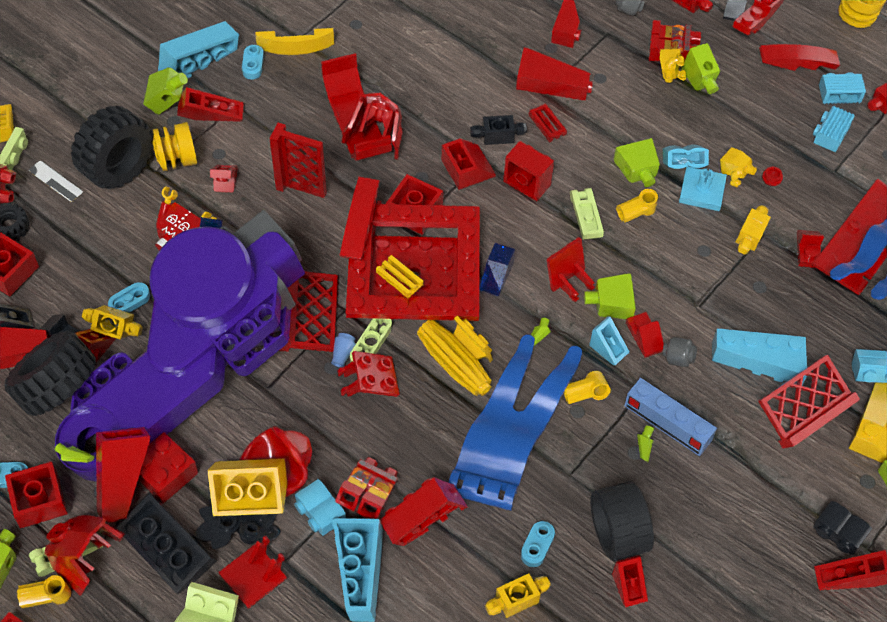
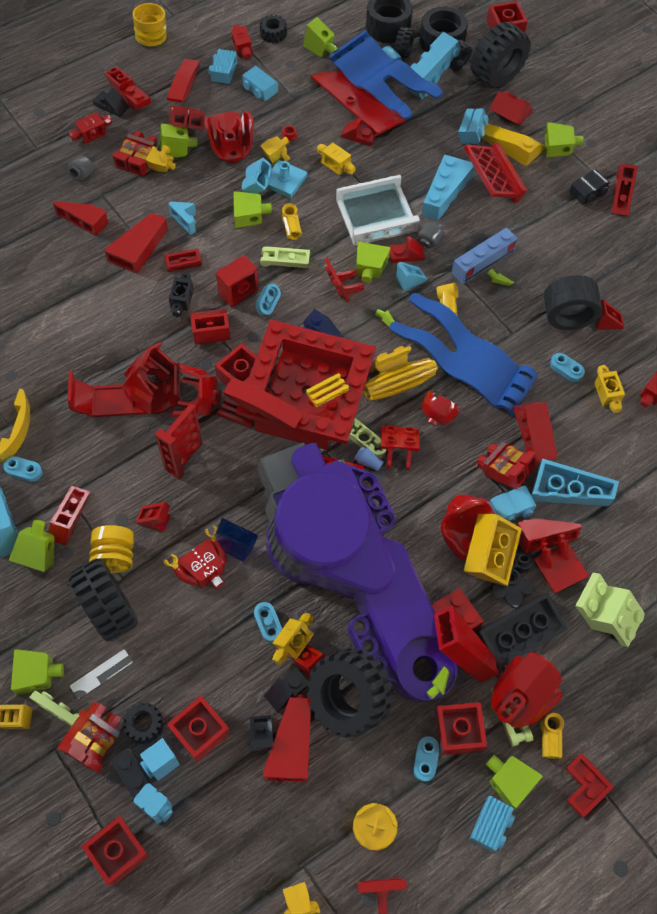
camera: 75 degrees left, 5 degrees up
(45, 125) = (33, 671): none -> lime torso
(288, 538) = (538, 531): none -> red slope
(376, 163) = (207, 390): none -> red piece
(425, 404) = (439, 409): none -> red cylinder
(520, 209) = (266, 303): none -> medium azure plate
(605, 104) = (184, 215): none -> medium azure slope
(695, 290) = (376, 210): none -> panel
(733, 114) = (230, 134): none -> red piece
(736, 65) = (187, 117): none -> red hips

